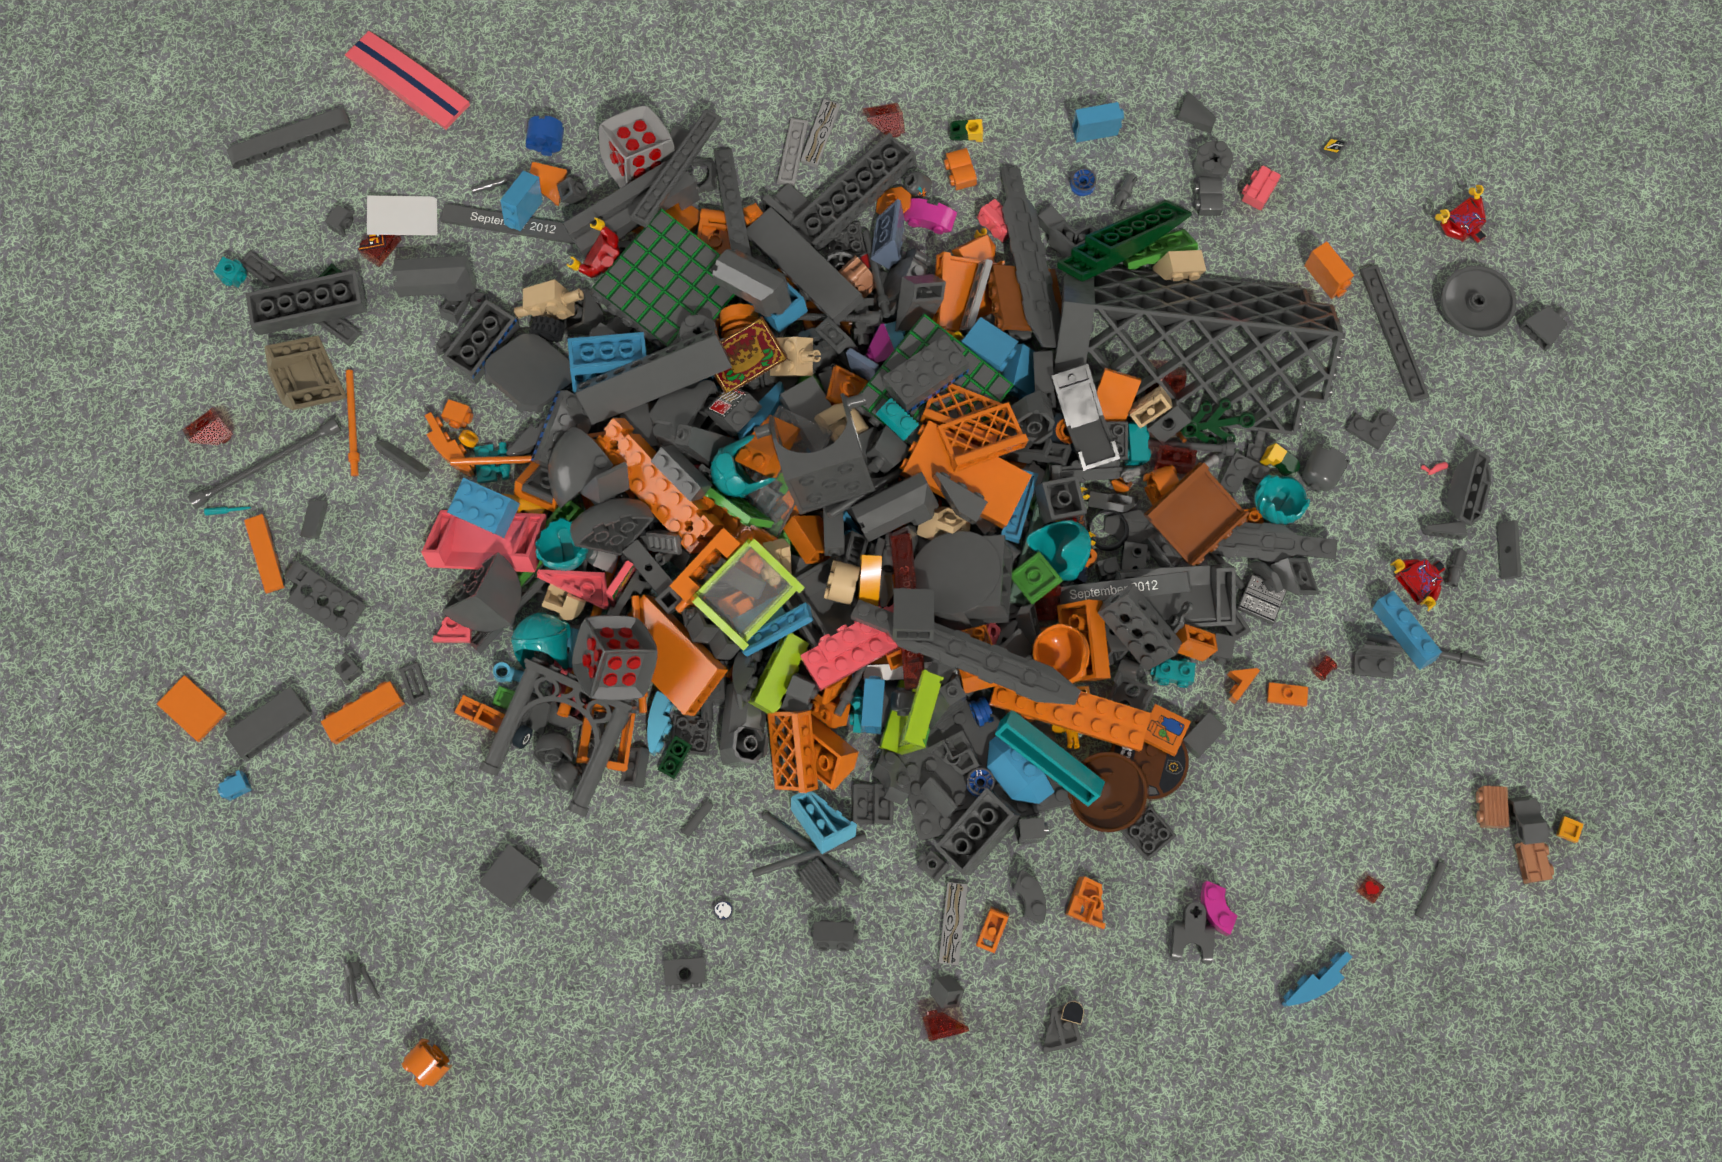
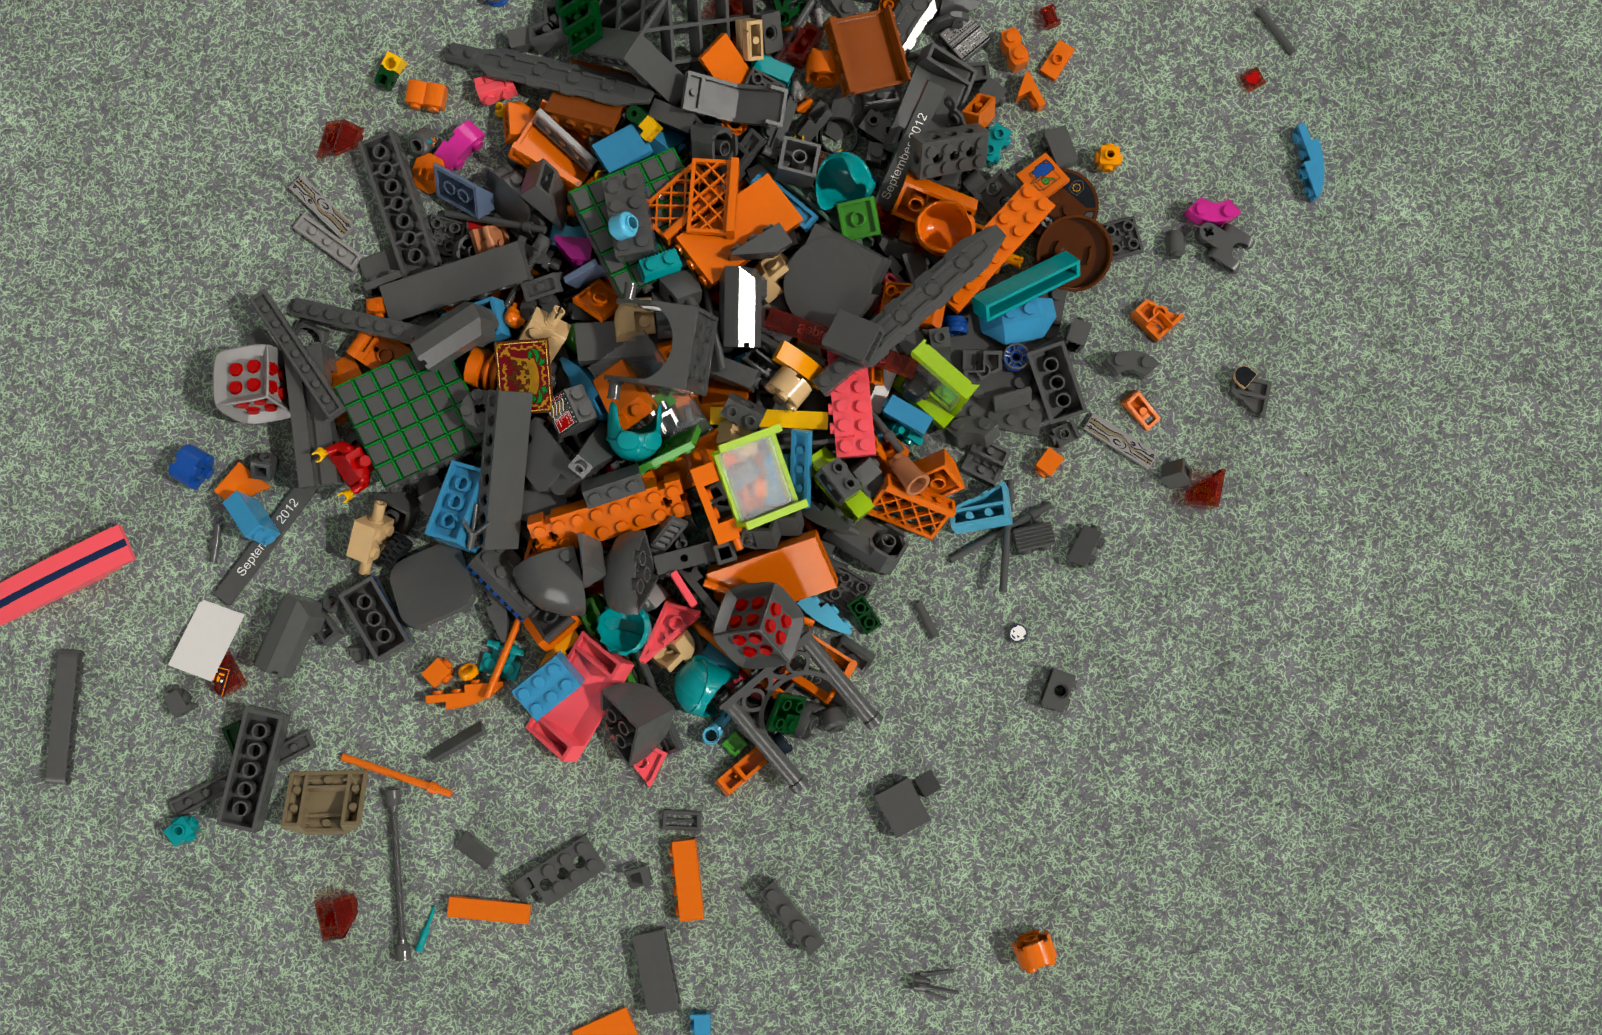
camera: 65 degrees left, 10 degrees up
(366, 821) = (791, 916): none -> dark grey brick
(547, 722) = (785, 713): none -> dark green slope
(585, 377) = (471, 531): none -> dark grey plant
(779, 667) = (838, 481): none -> dark grey brick
(795, 325) = (513, 318): none -> orange piece
(801, 552) = (743, 412): none -> dark grey brick
(810, 581) = (786, 418): none -> yellow sticker
(817, 729) = (909, 474): none -> nougat plant
(897, 863) = (1048, 463): none -> orange brick
(910, 367) = (623, 225): none -> medium azure head
(1025, 352) = (645, 121): none -> leg
(1169, 887) = (1175, 244): none -> dark grey brick
(1212, 788) = (1108, 158): none -> light orange brick
(1274, 648) = (1015, 52): none -> orange brick

